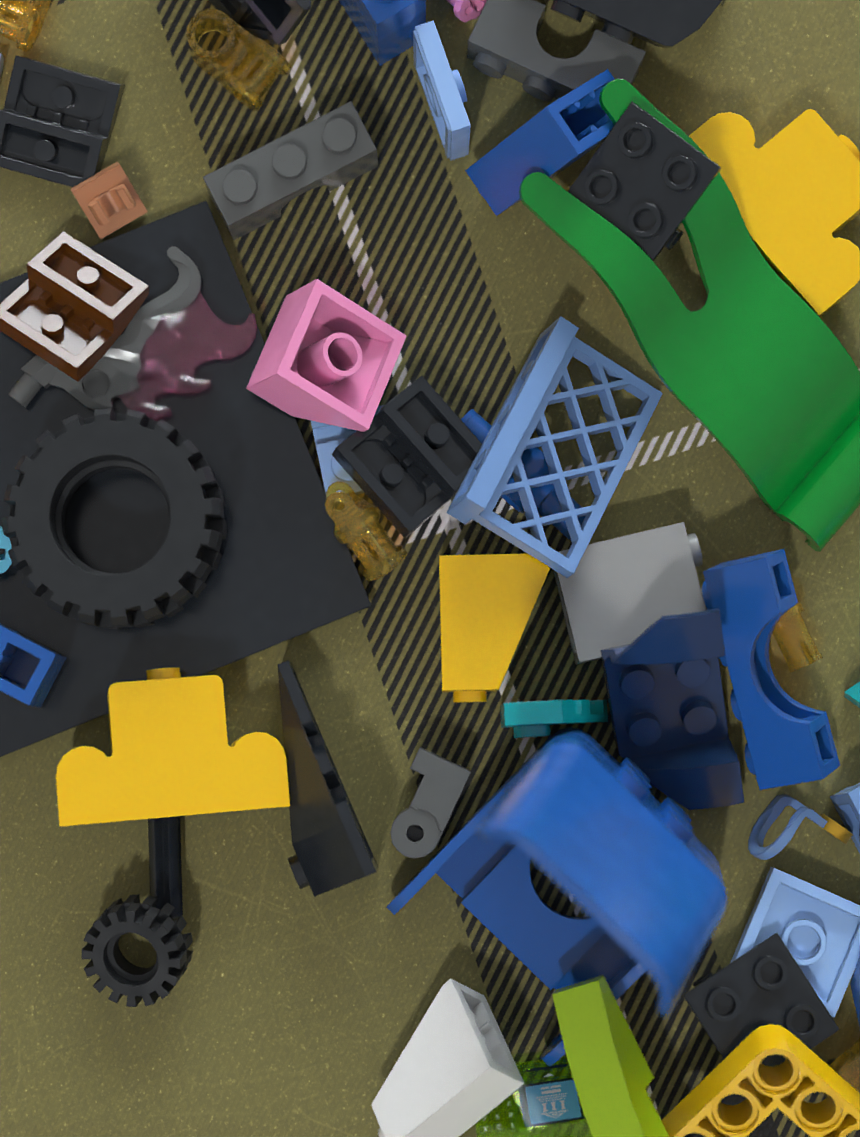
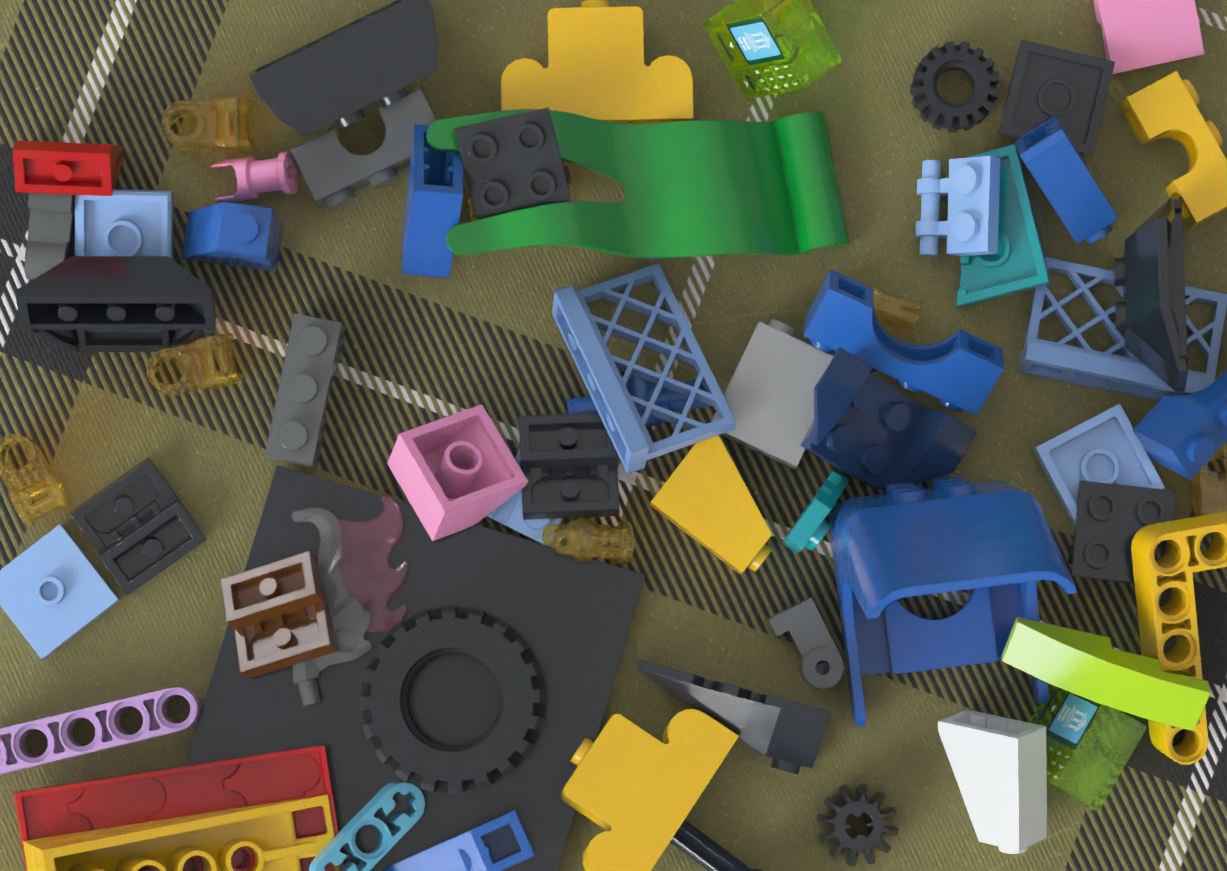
camera: 55 degrees left, 0 degrees up
(109, 200) = (222, 531): nougat tile -> none
(284, 992) = (857, 841): none -> black gear
(442, 90) = (336, 245): light blue plate -> none
(770, 814) = (998, 419): medium blue piece -> none

